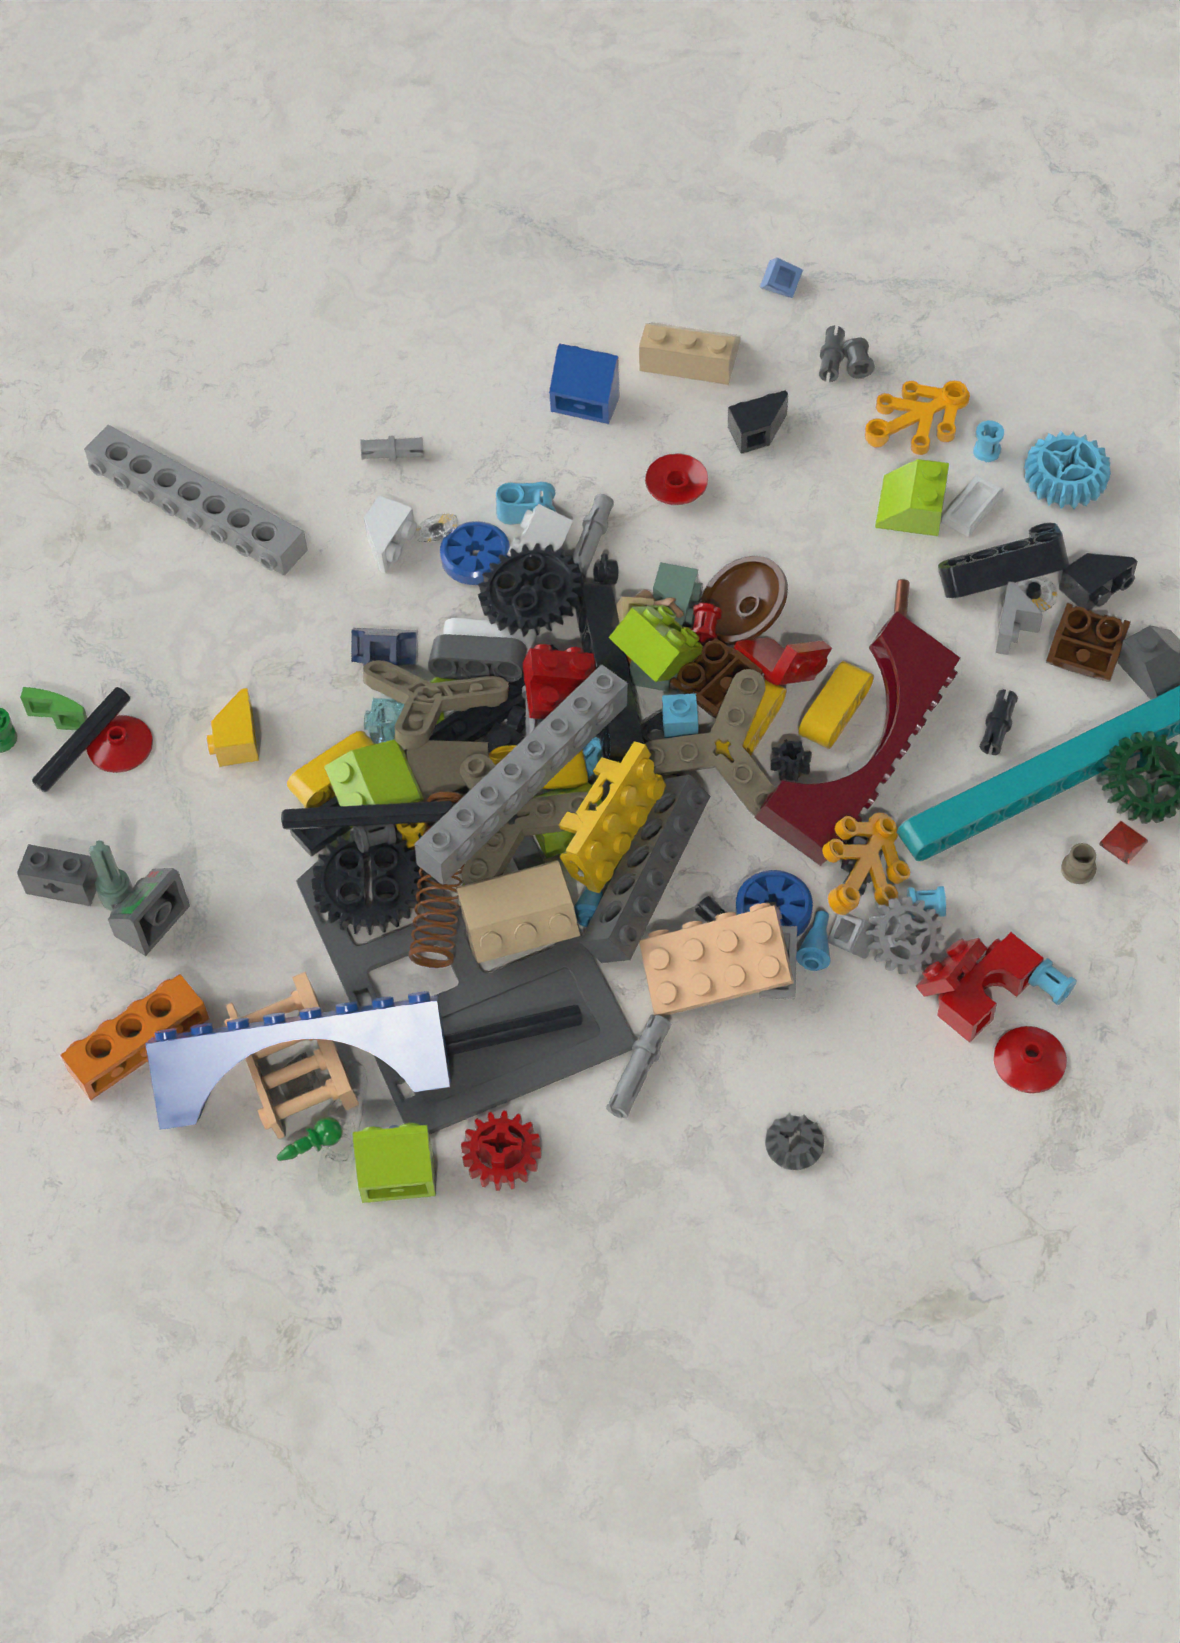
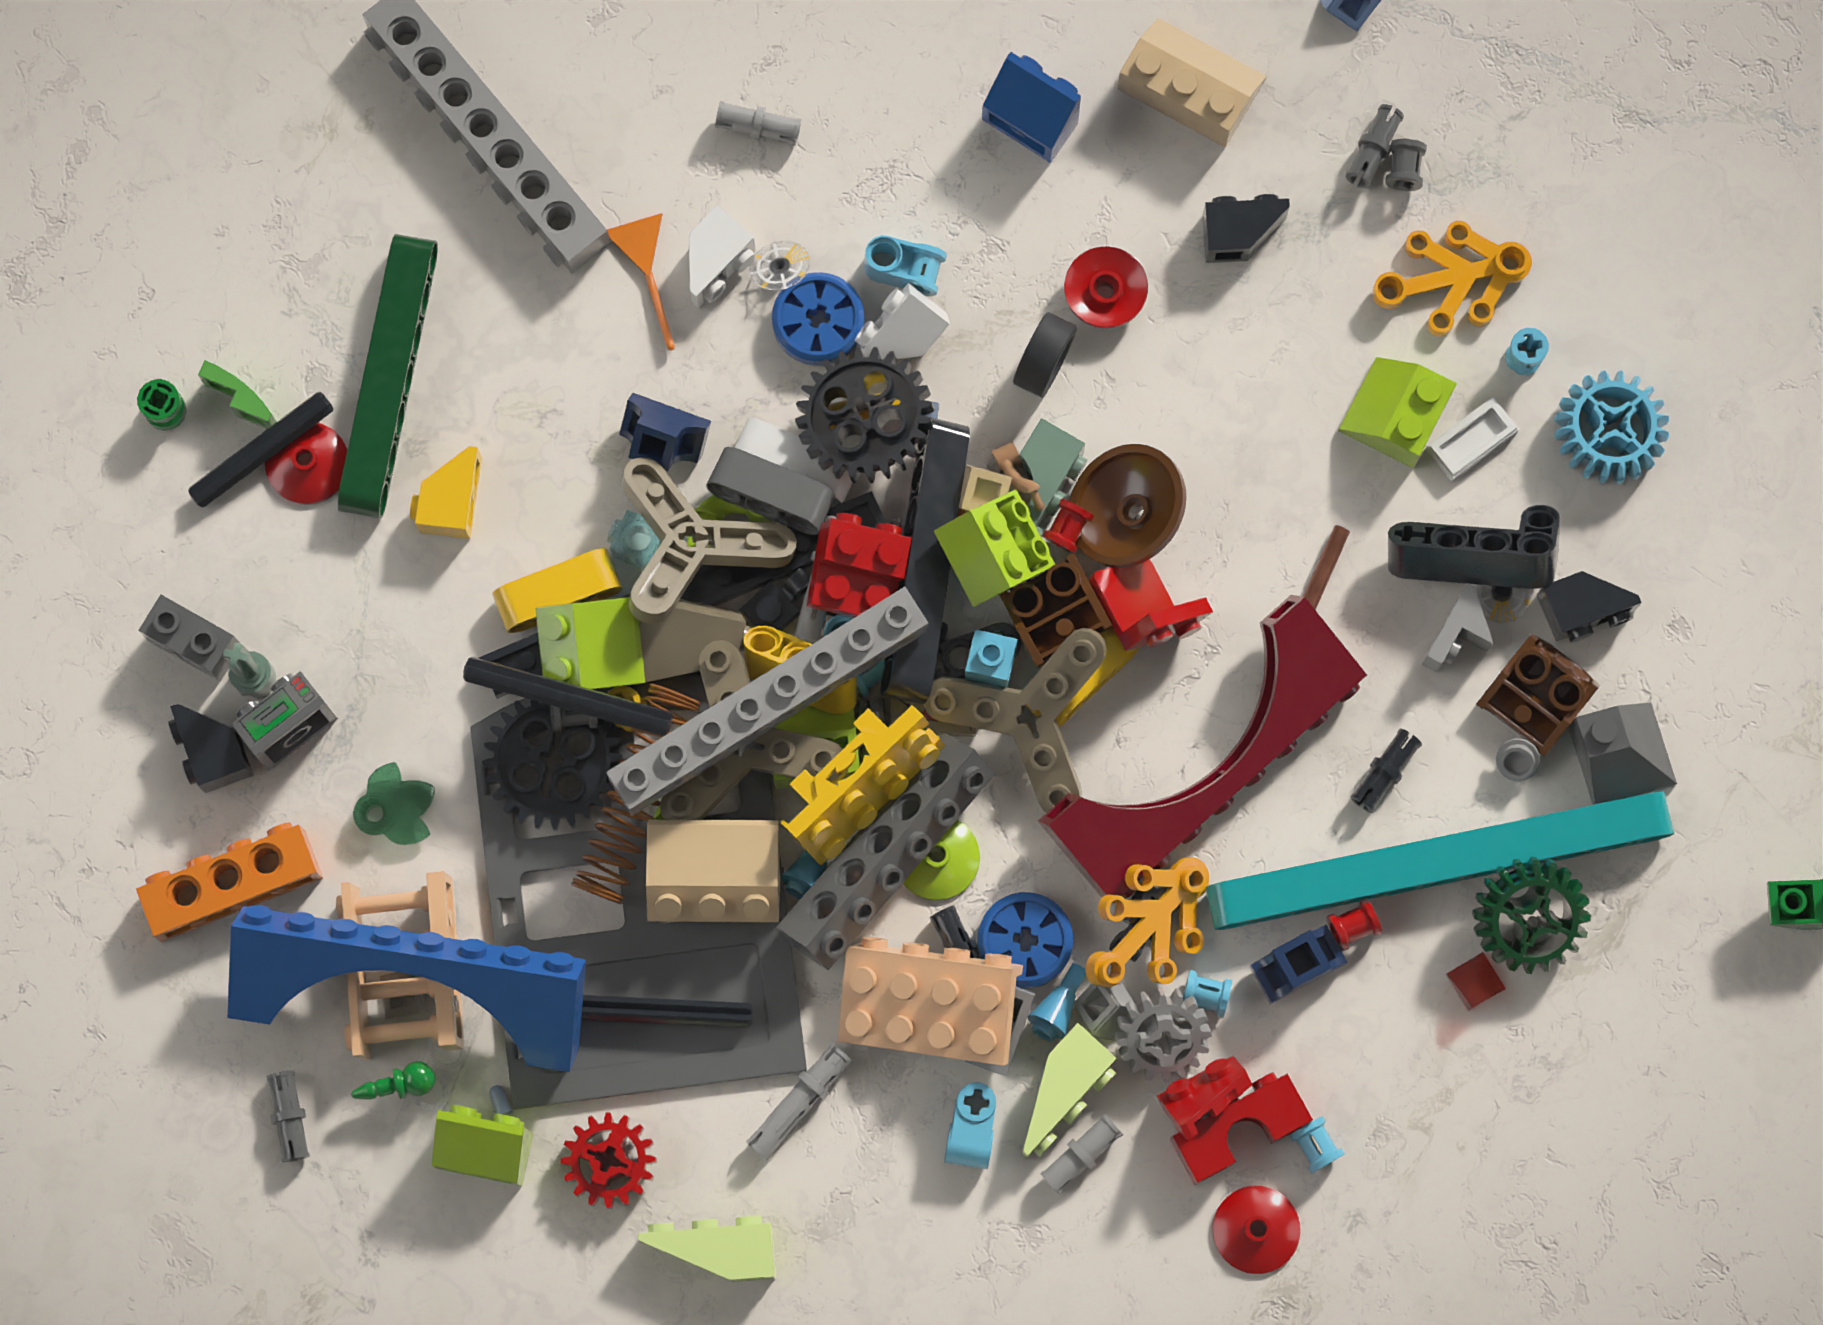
camera: 15 degrees right, 20 degrees up
(97, 946) = (212, 749): none -> black slope
(165, 670) = (387, 376): none -> dark green beam
(229, 1195) = (288, 1116): none -> dark grey pin
(257, 949) = (401, 805): none -> clear green plate
(330, 544) = (639, 244): none -> orange piece
(594, 526) = (979, 326): light grey pin -> none
(606, 571) = (972, 401): black plate -> none
(615, 1191) = (729, 1252): none -> yellowish green slope
(648, 525) = (1044, 354): none -> black tyre
(696, 882) = (954, 873): none -> lime dish
(781, 1045) = (969, 1134): none -> medium azure piece
(790, 760) = (1101, 755): black gear -> none
(803, 1154) = (950, 1271): dark grey gear -> none
(836, 704) = (1194, 685): yellow beam -> none
(843, 986) = (1068, 1076): none -> yellowish green slope
(874, 1040) = (1081, 1154): none -> light grey pin
(986, 861) = (1298, 963): none -> dark blue brick
(1018, 826) = (1354, 924): none -> red bush
(1079, 872) = (1398, 1007): dark tan piece -> none
(1091, 688) = (1517, 759): none -> light grey plate

